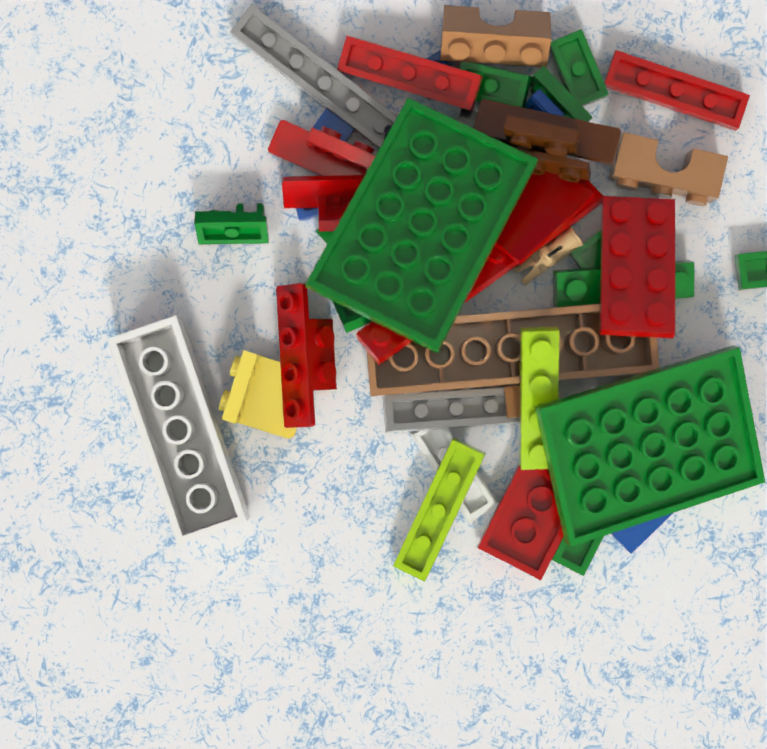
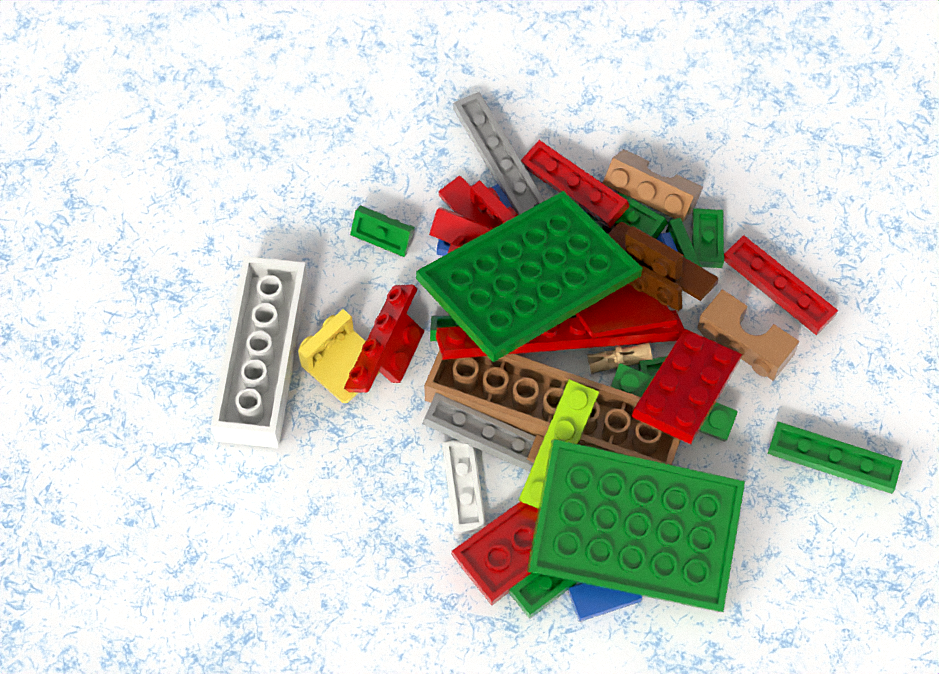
camera: 30 degrees right, 25 degrees down
(439, 509) = (434, 504): lime plate -> none

